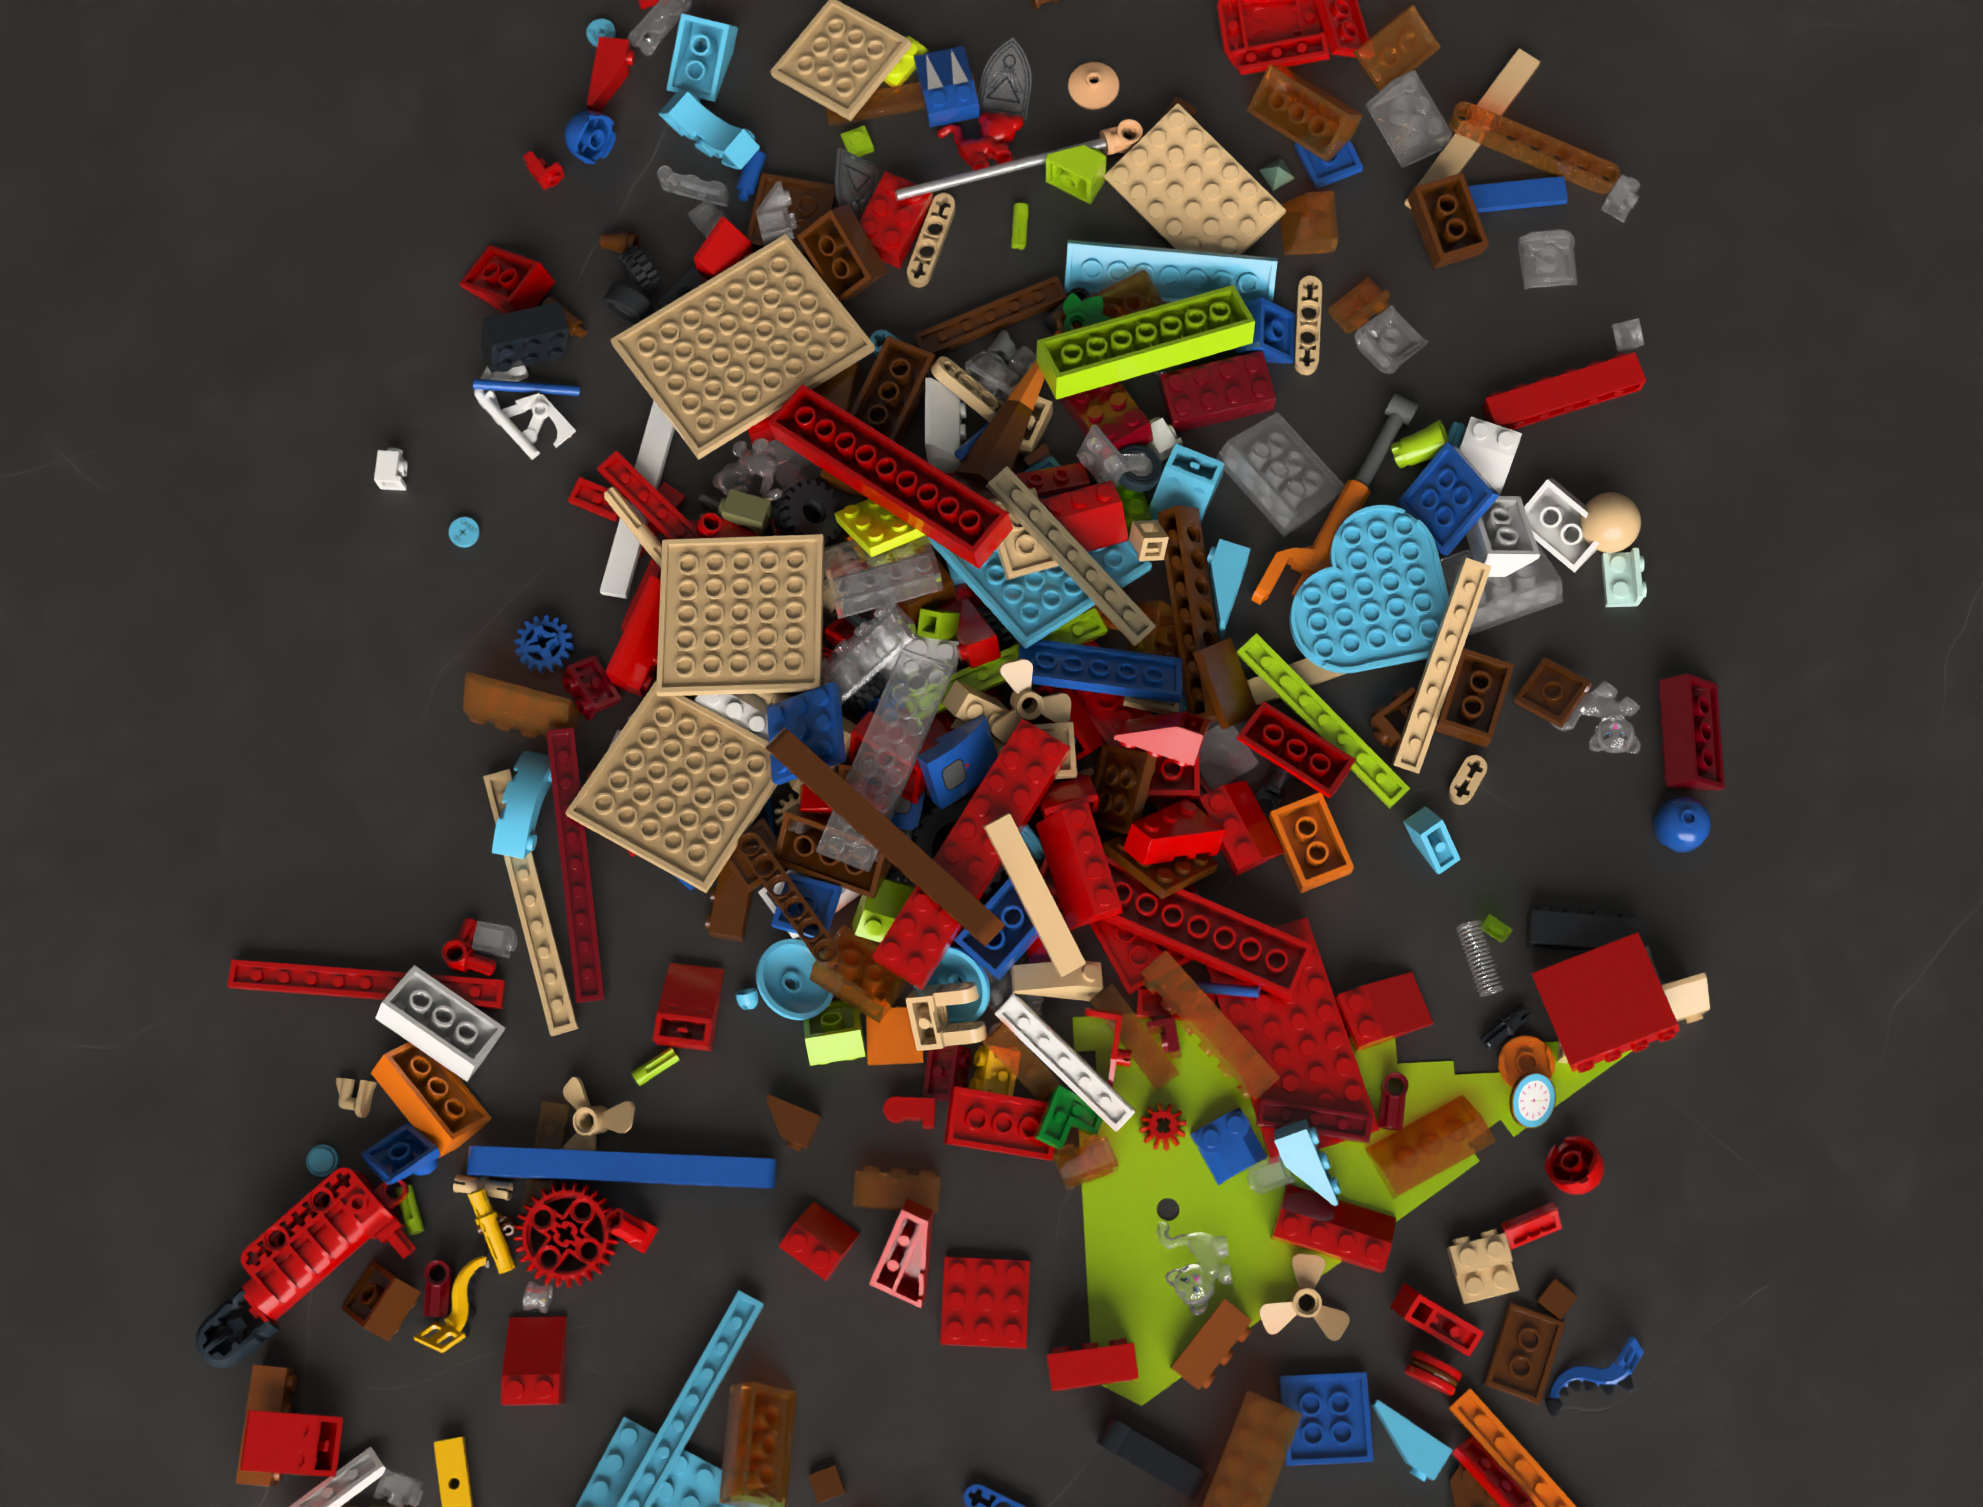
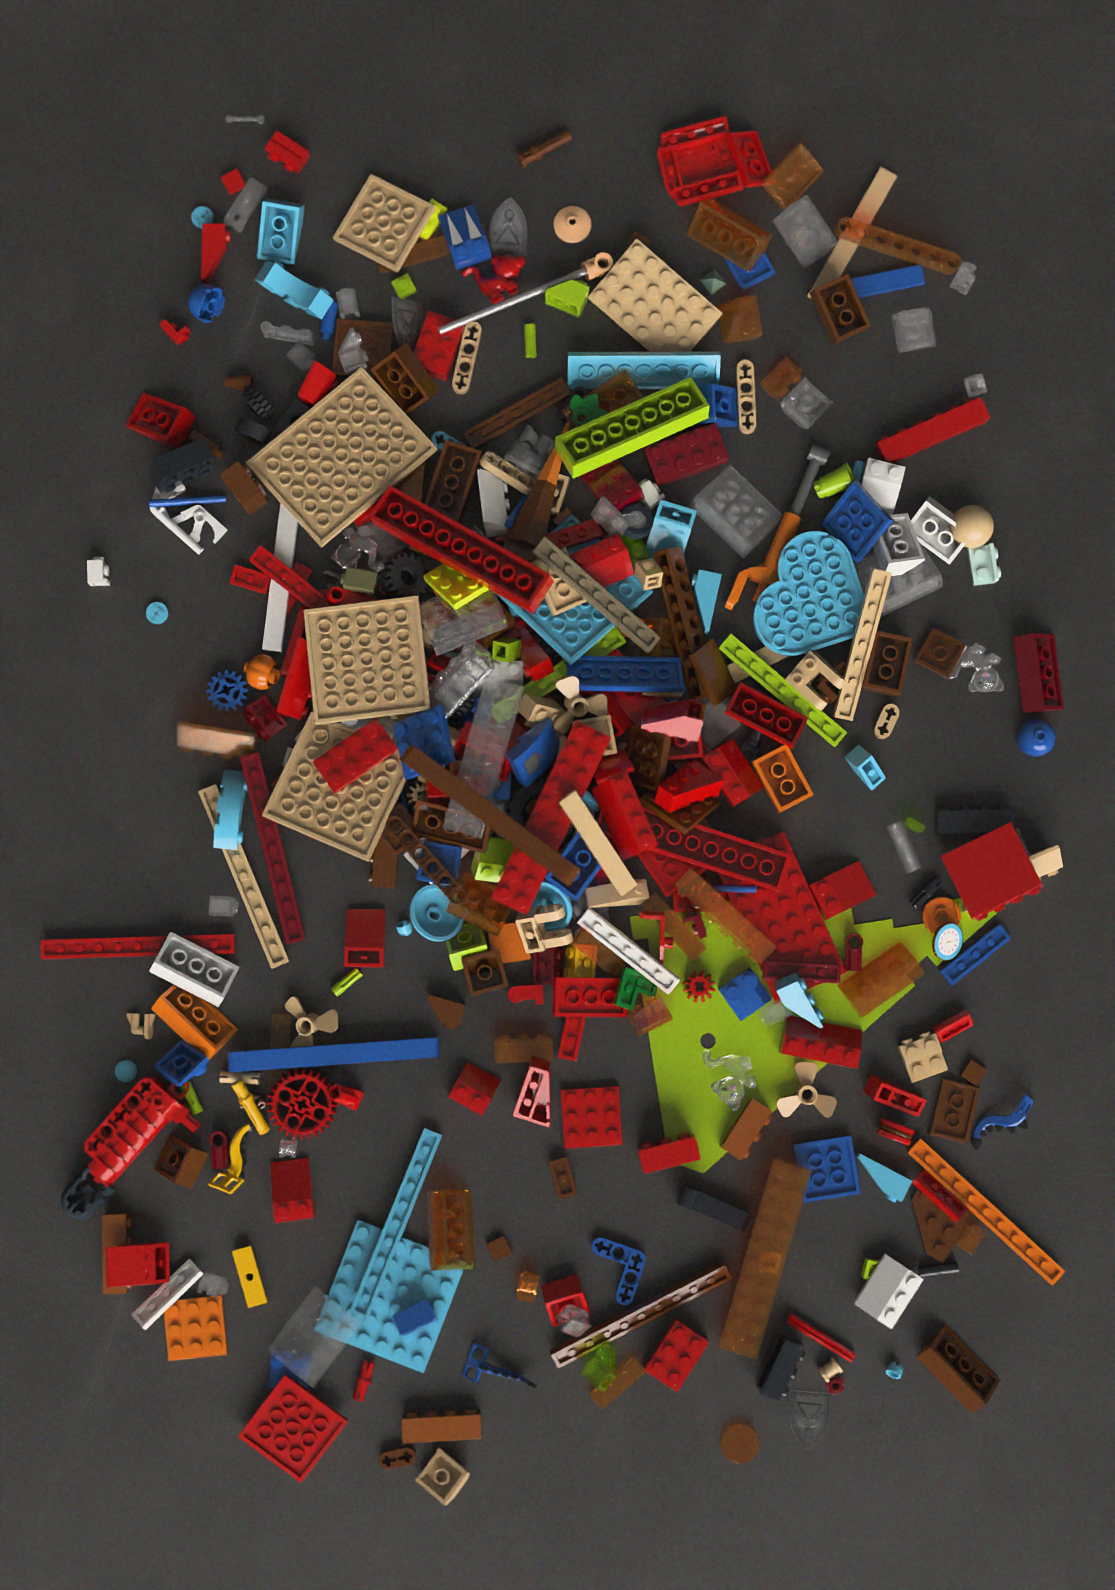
camera: 15 degrees left, 10 degrees up
(469, 959) = (201, 911): red axle -> none
(596, 623) = (262, 672): none -> orange plant
(605, 373) = (244, 487): none -> reddish brown brick
(635, 524) = (281, 598): tan axle -> none
(707, 745) = (355, 755): none -> red plate
(779, 155) = (347, 303): none -> clear brick
(854, 1072) = (484, 972): none -> reddish brown slope
(933, 1388) = (562, 1178): none -> reddish brown plate
(969, 1181) = (571, 1038): none -> red plate
(1360, 697) = (806, 671): none -> tan brick
(1574, 1122) = (975, 954): none -> blue tile
(1575, 1165) = (979, 983): red cylinder -> none

